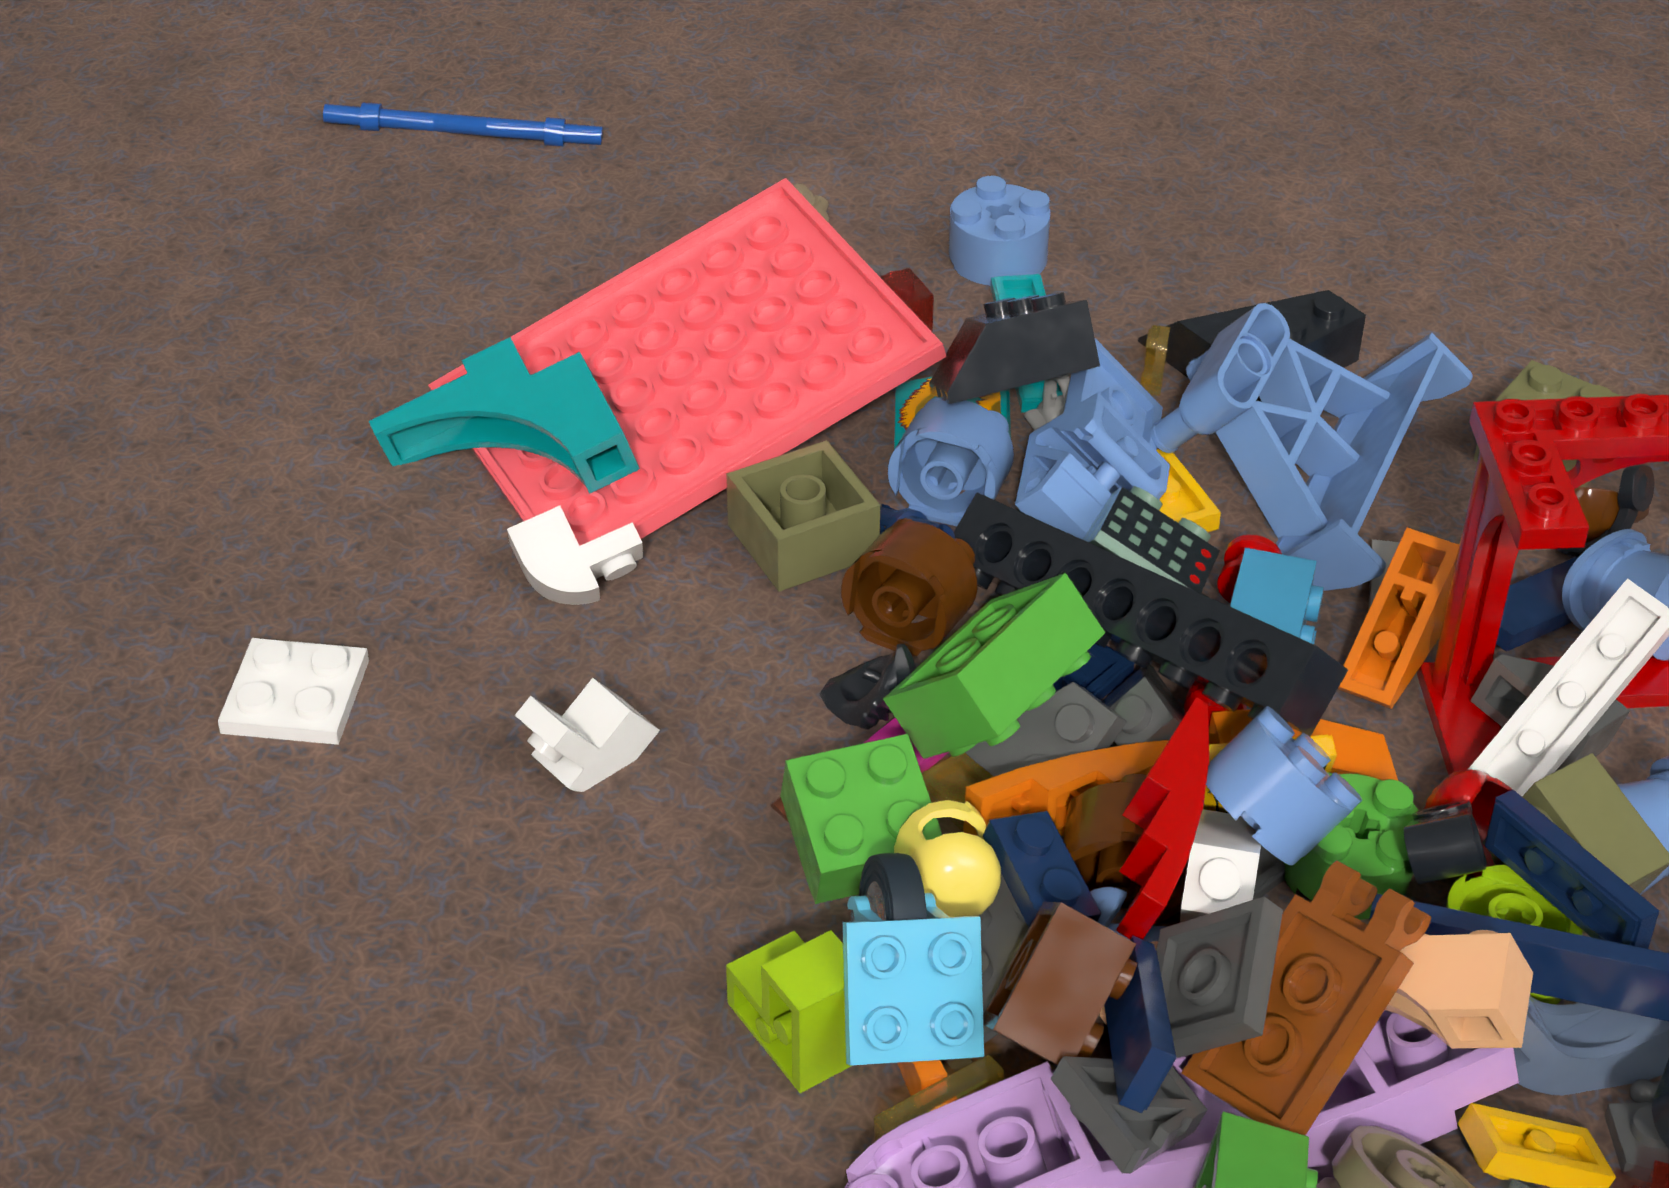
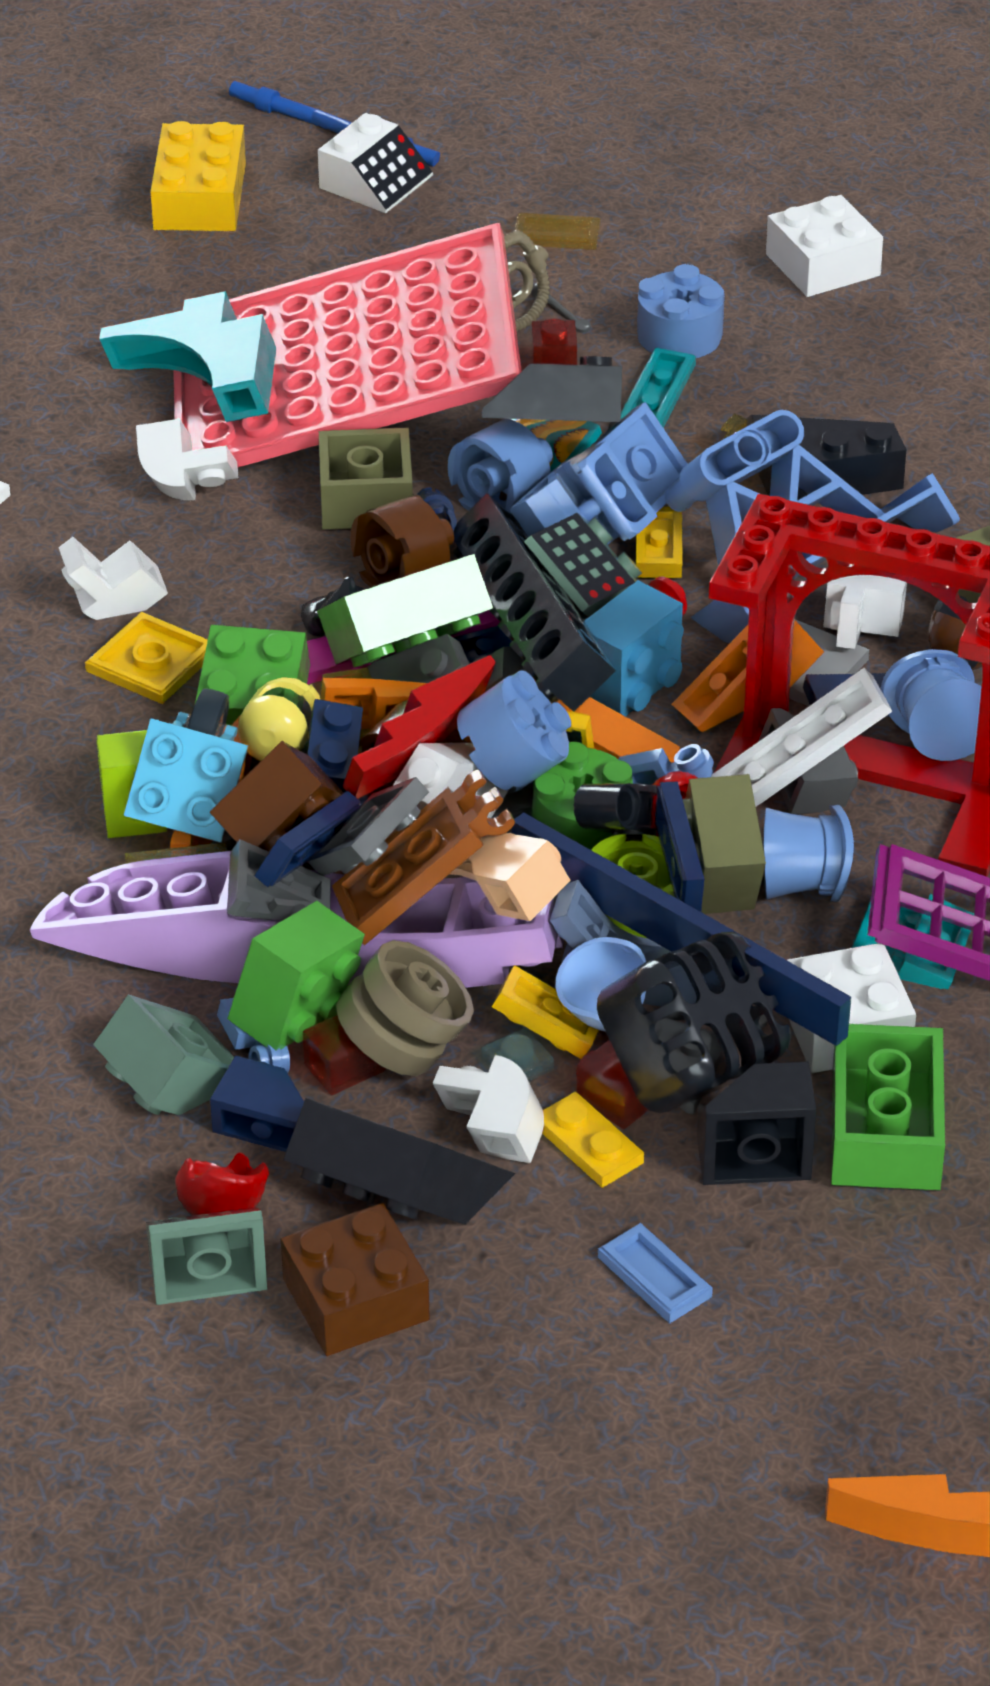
camera: 25 degrees right, 0 degrees up
(358, 217) = (198, 177): none -> yellow brick
(543, 156) = (371, 164): none -> white slope
(689, 822) = (149, 657): none -> yellow tile
(812, 171) = (560, 230): none -> clear yellow tile
(1085, 124) = (824, 245): none -> white brick
(1442, 497) = (865, 606): none -> white brick
(1446, 754) = (653, 764): none -> medium blue plate
(1586, 1088) = (592, 969): none -> light blue helmet

